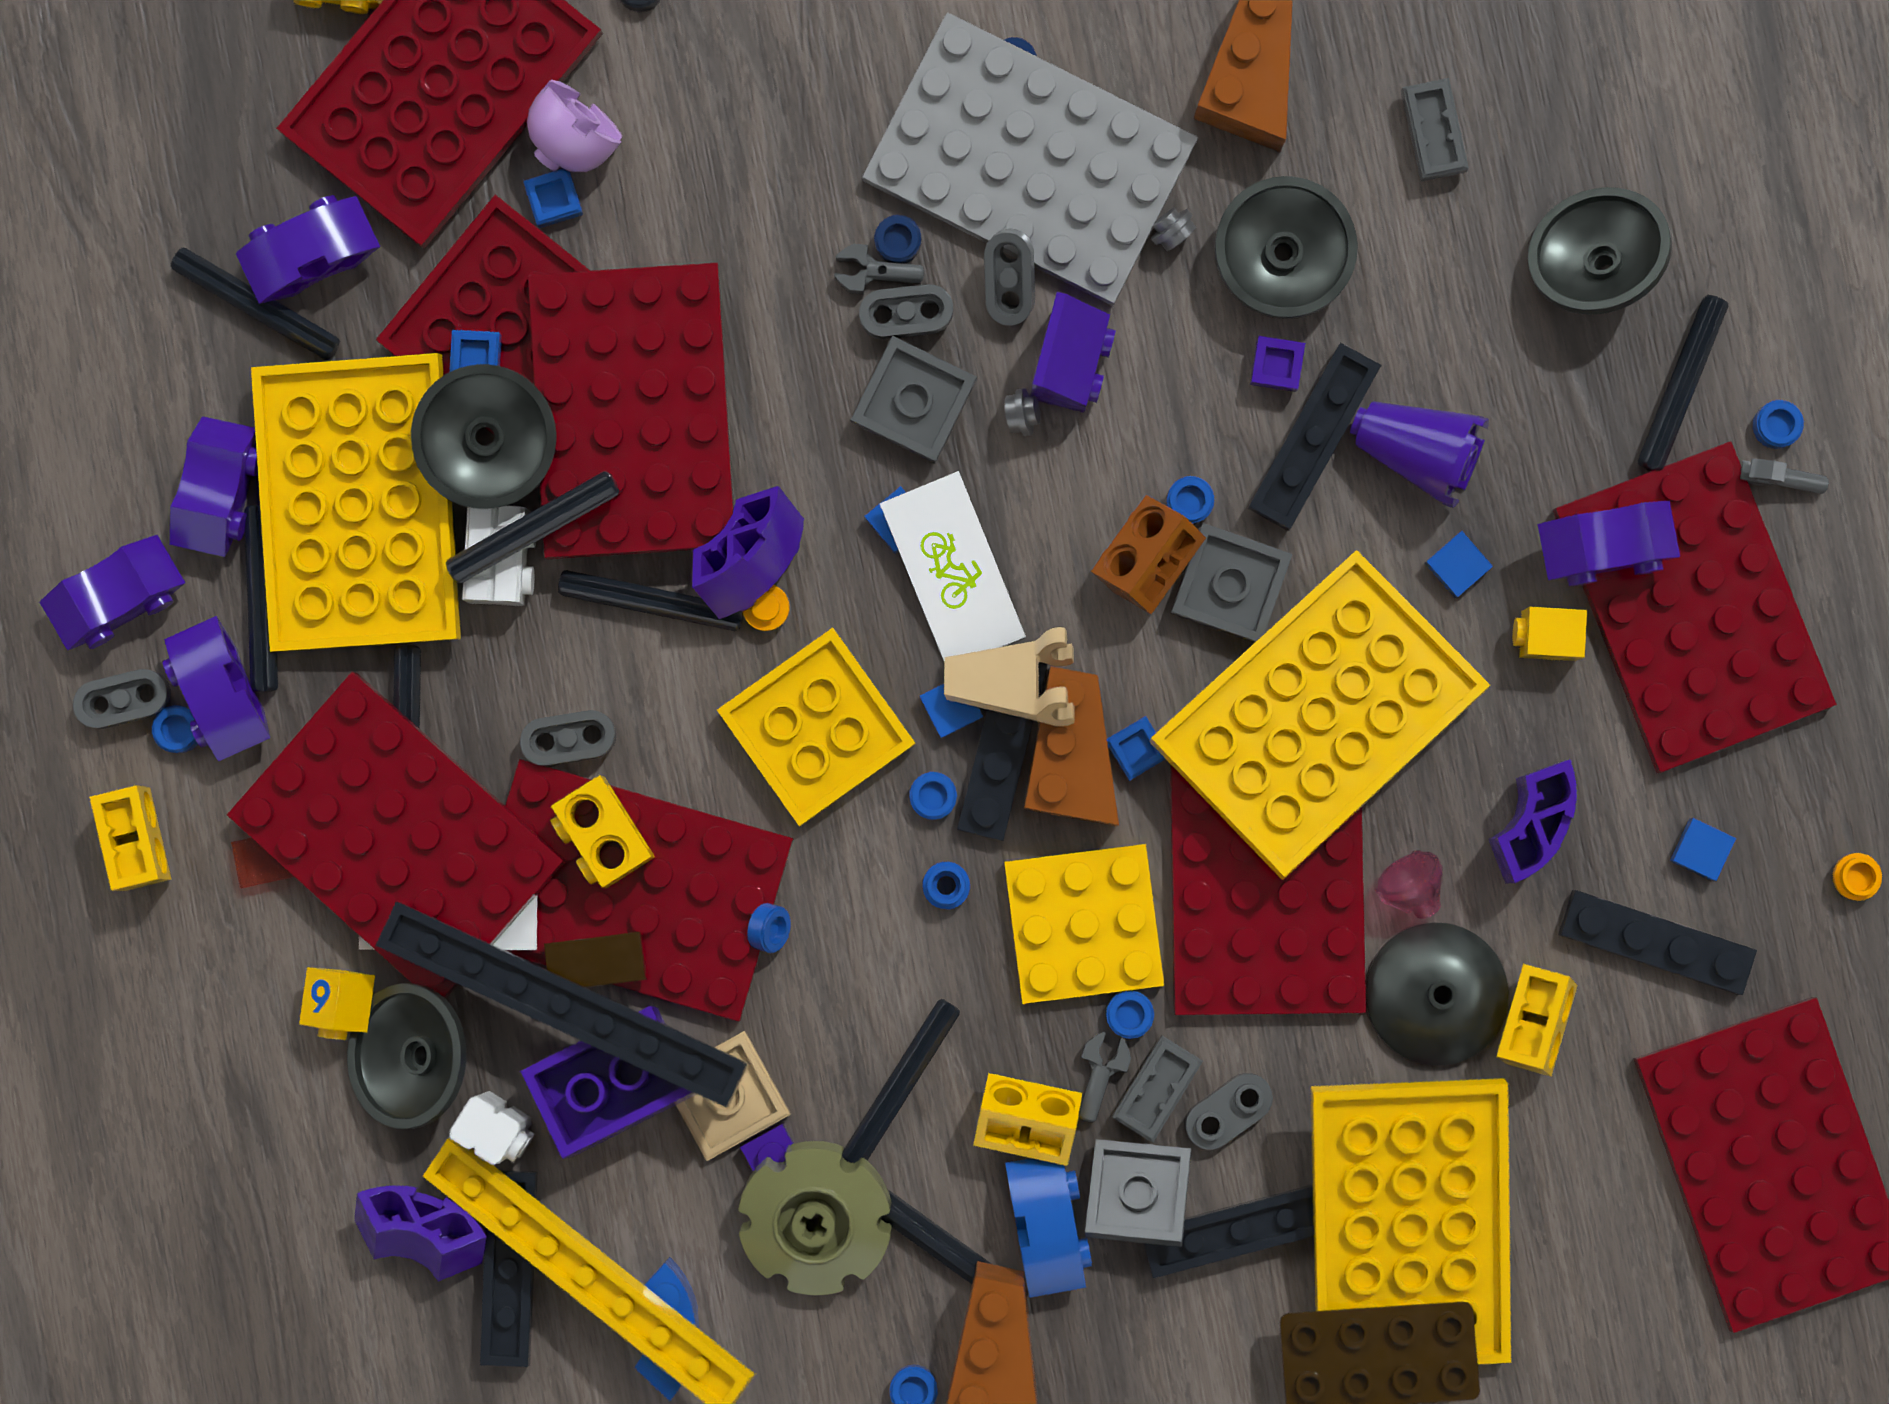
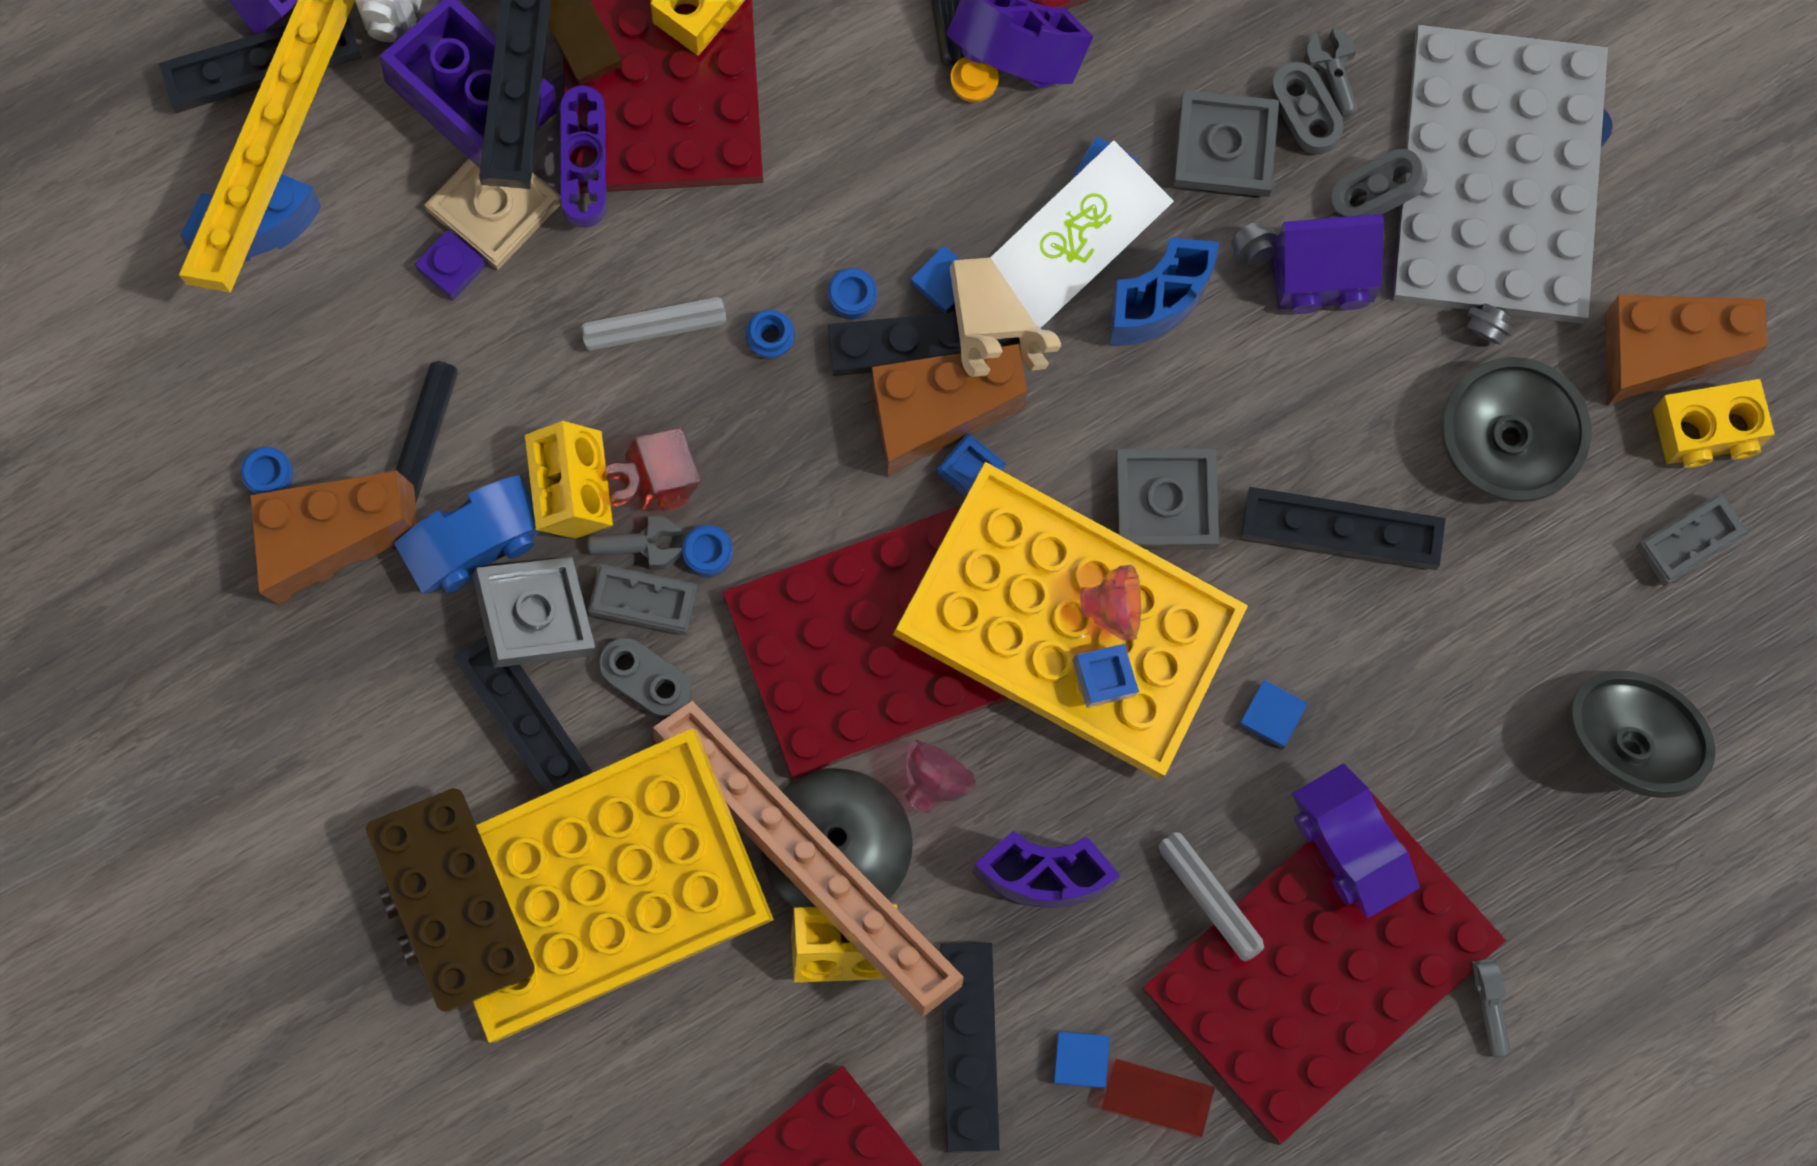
camera: 65 degrees right, 10 degrees down
(690, 977) = (570, 124): none -> dark purple beam
(769, 928) = (668, 182): blue tile -> none
(816, 727) = (877, 161): yellow plate -> none
(820, 1253) = (403, 316): olive piece -> none
(897, 239) = (1373, 80): dark blue tile -> none
(898, 988) = (653, 323): none -> light grey axle
(901, 1082) = (562, 357): black axle -> none
(1045, 512) = (1164, 296): none -> blue brick
(1047, 1033) = (658, 469): none -> clear red brick
(1084, 923) = (781, 477): yellow plate -> none
(1148, 554) = (1164, 405): dark orange brick -> none
(1191, 498) = (1233, 435): blue tile -> none
(1277, 363) = (1399, 468): dark purple plate -> none
(1326, 671) = (1115, 602): none -> piece
(1328, 65) = (1709, 412): none -> yellow brick
(1389, 705) = (1105, 675): none -> blue plate
(1422, 445) = (1376, 635): dark purple cone -> none
(1462, 1025) = (820, 869): none -> nougat plate
(1551, 633) = (1240, 825): yellow brick -> none
(1606, 684) = (1211, 896): none -> light grey axle
(1683, 383) = (1545, 873): black axle -> none
(1758, 795) = (1158, 1098): none -> clear red tile
(1778, 424) = (1543, 985): blue tile -> none

